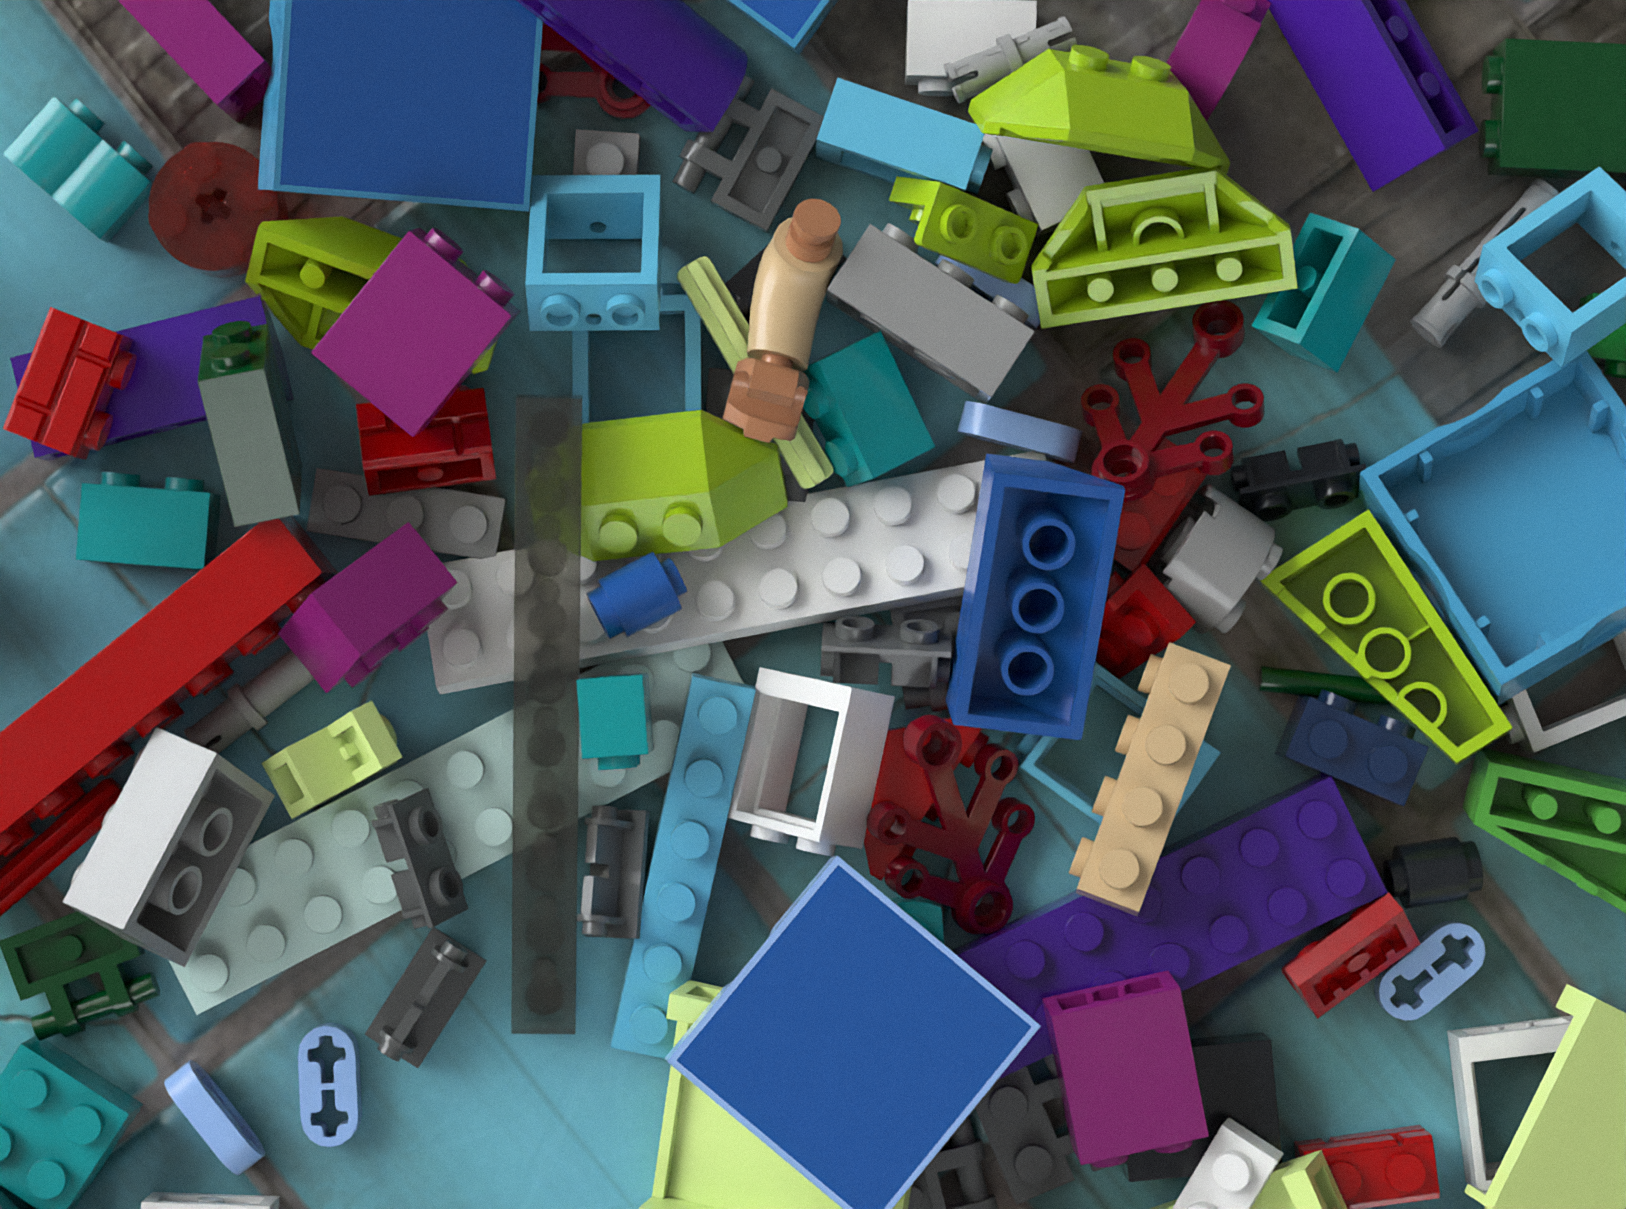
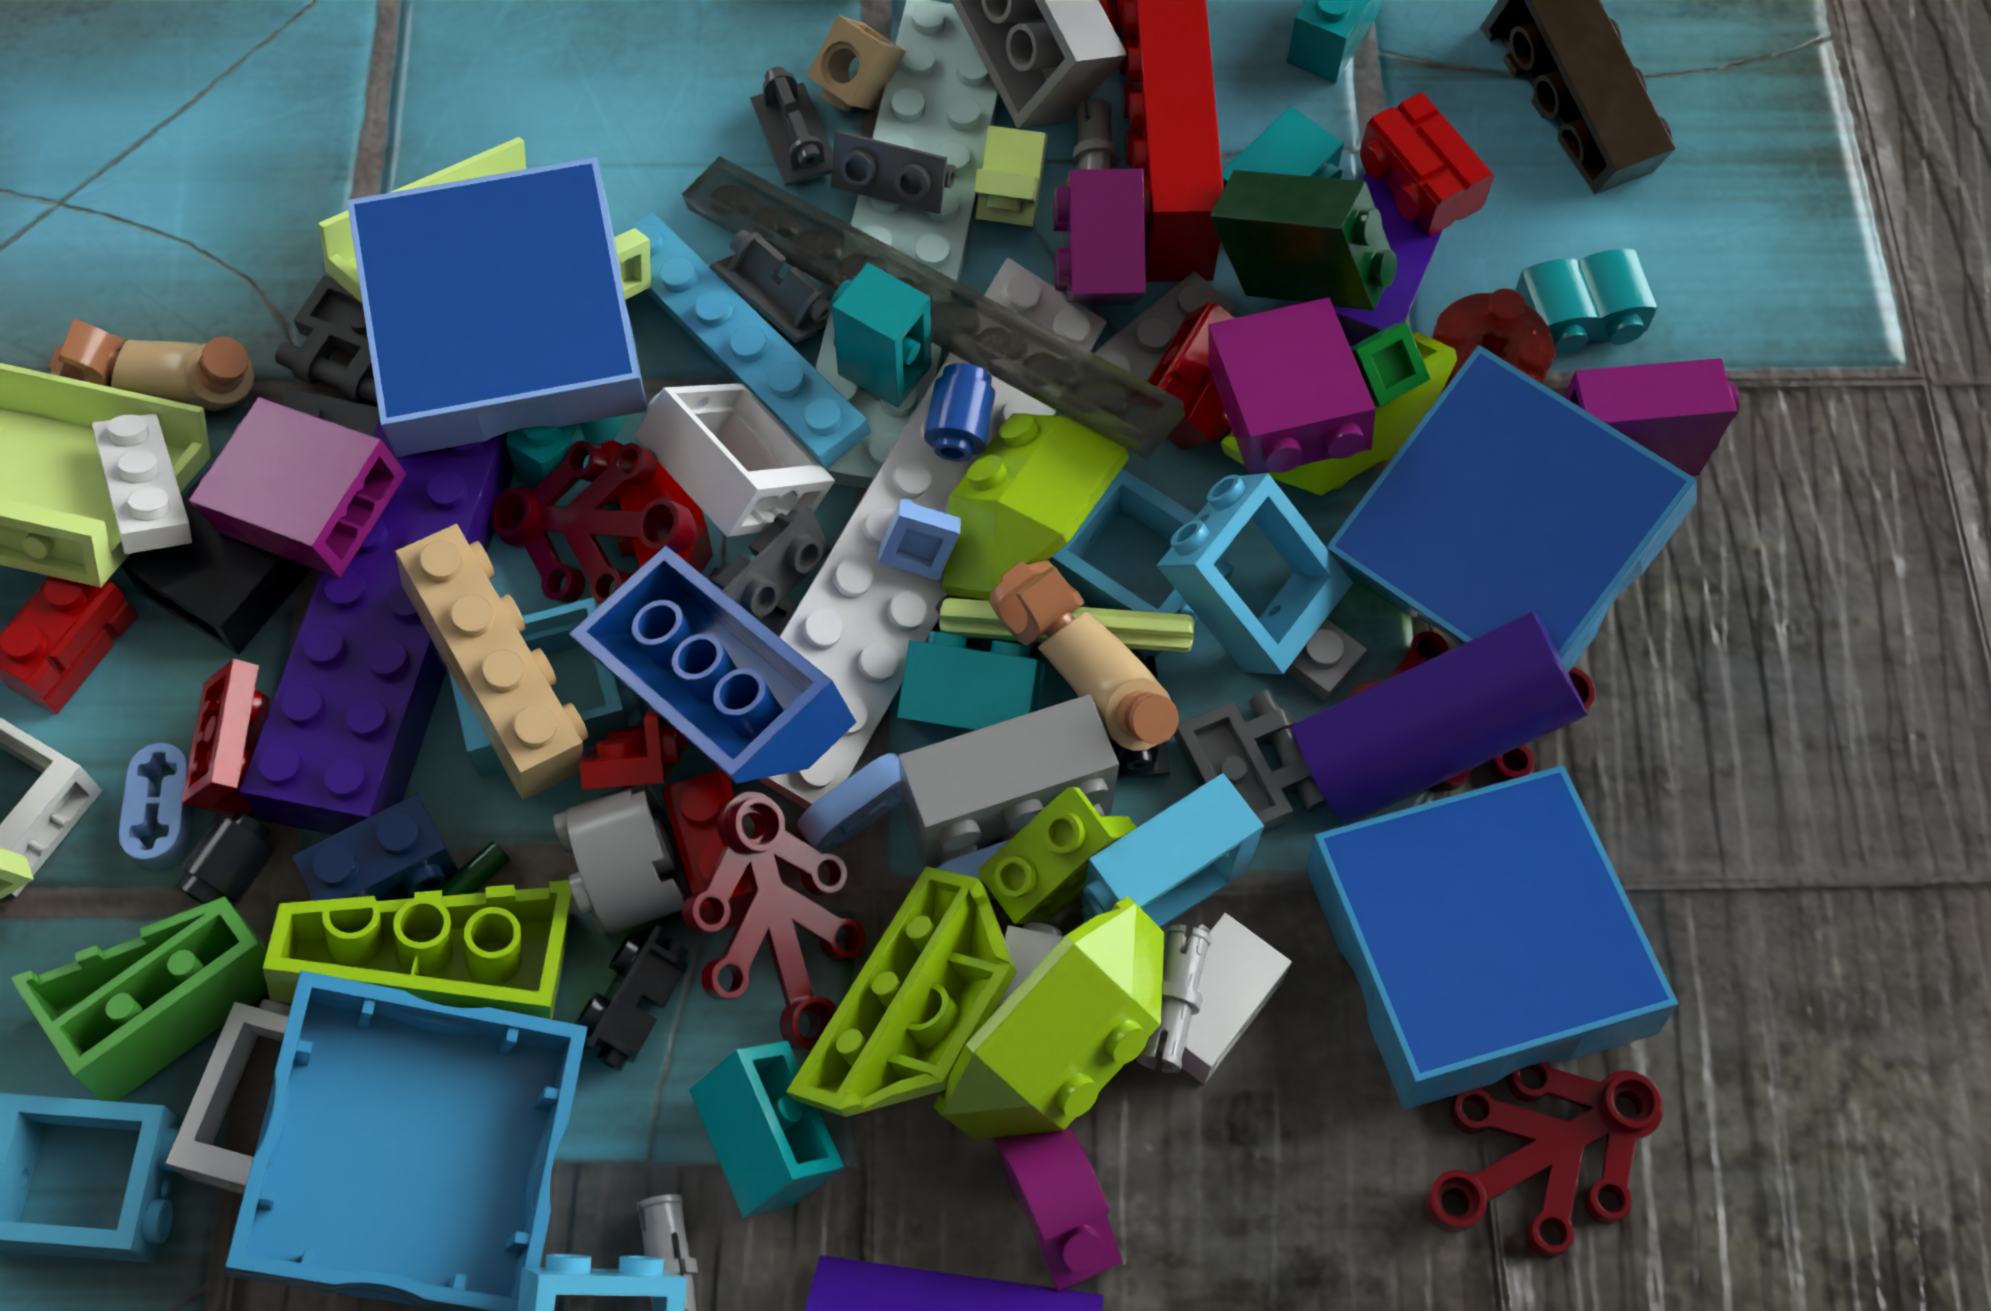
camera: 125 degrees right, 25 degrees down
(300, 985) = (876, 58): none -> tan brick
(314, 1084) = (783, 48): light blue beam -> none
(331, 265) = (1390, 363): none -> green tile
(777, 541) = (919, 539): none -> light blue tile

